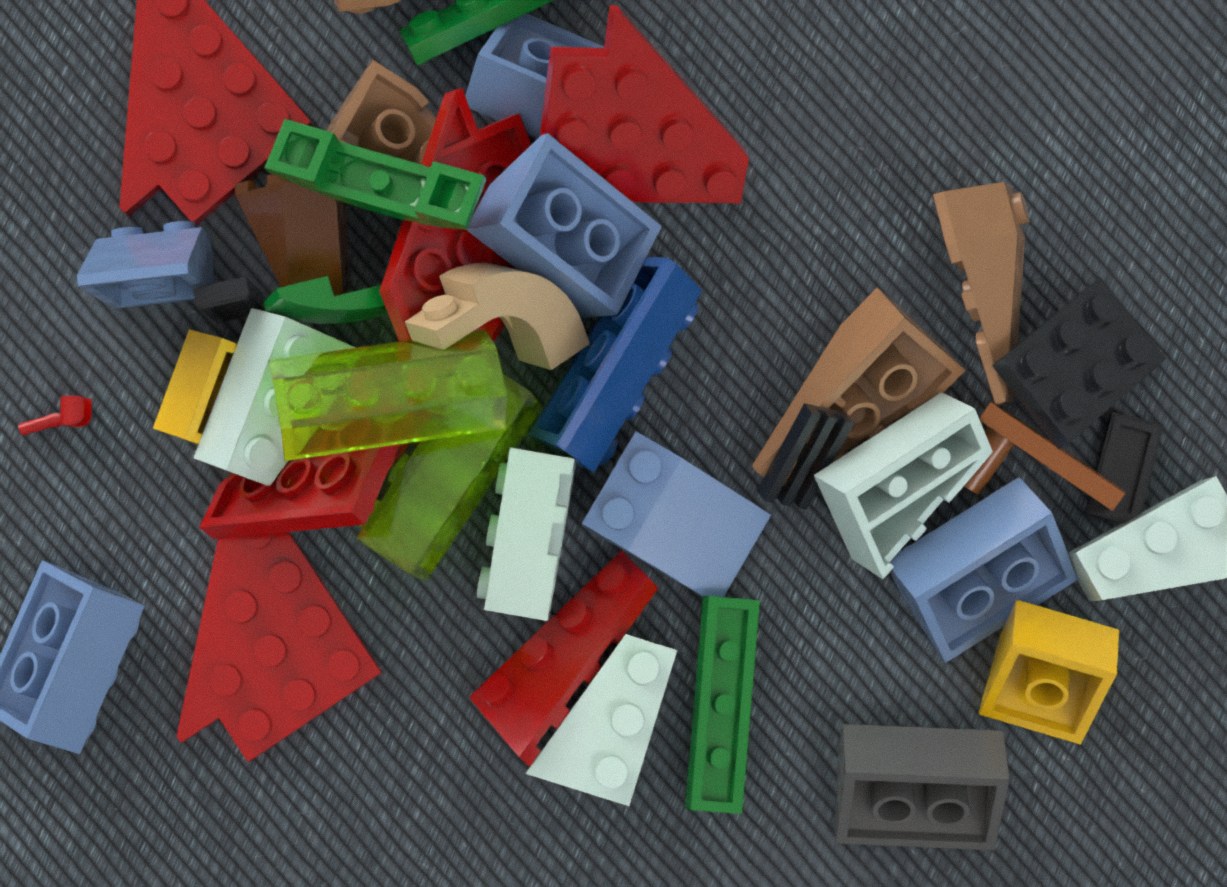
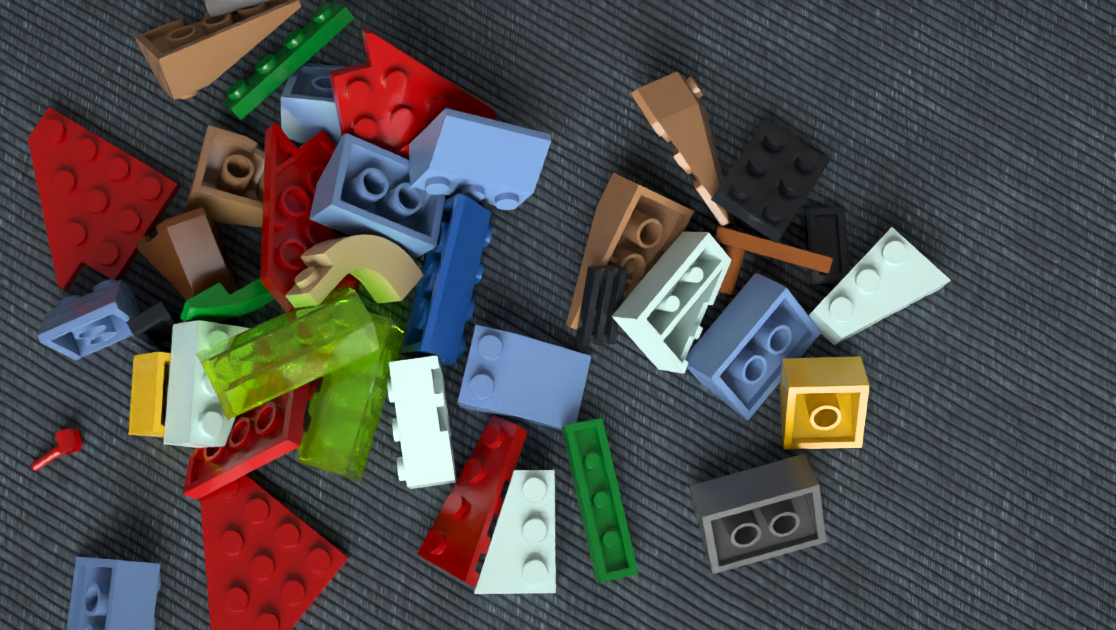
camera: 20 degrees left, 5 degrees down
(374, 180) = (232, 204): green slope -> none
(706, 218) = (478, 159): none -> medium blue slope

